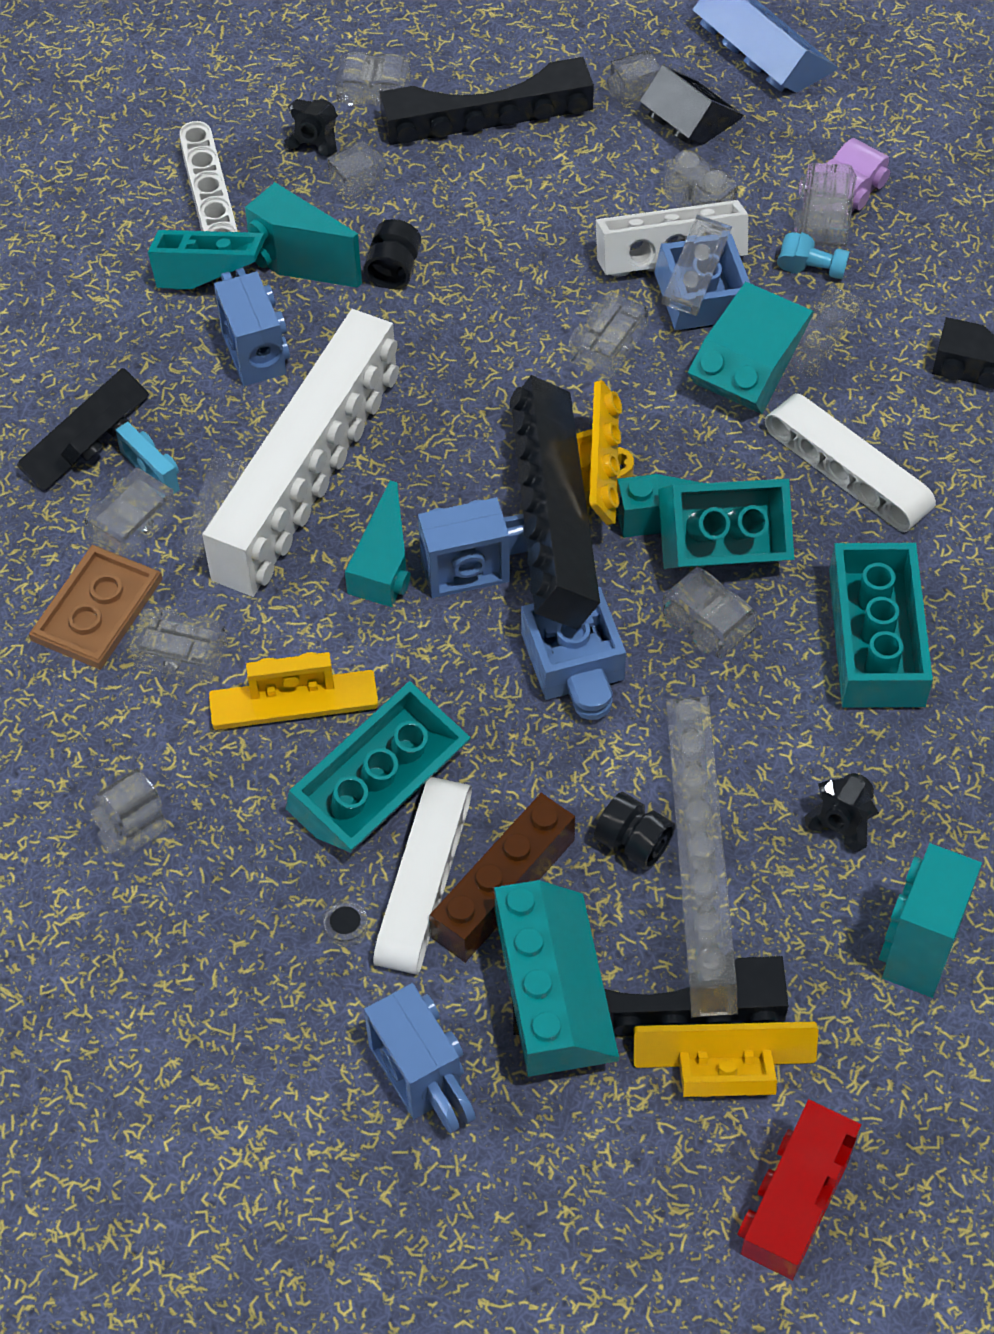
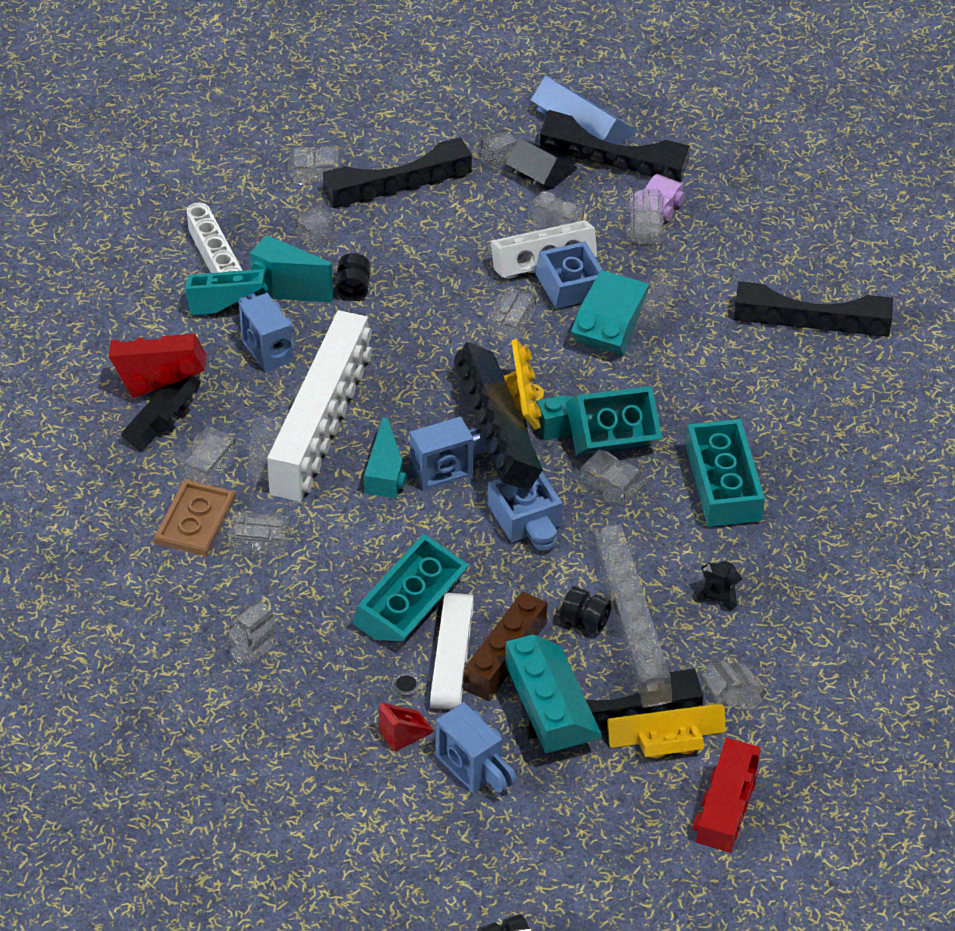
camera: 10 degrees left, 10 degrees down
(83, 362) = (156, 362): none -> red wedge
(142, 454) = (202, 416): medium azure plate -> none
(291, 691) = (341, 552): yellow bracket -> none
(313, 125) = (279, 199): black rock -> none
(327, 992) = (402, 725): none -> red slope
(696, 265) = (566, 262): clear tile -> none
(799, 252) = (631, 251): medium azure leg -> none
(838, 992) = (733, 684): none -> clear brick
(850, 462) = (688, 378): white beam -> none
(863, 115) = (565, 135): none -> black arch
(928, 918) = (783, 634): teal brick -> none

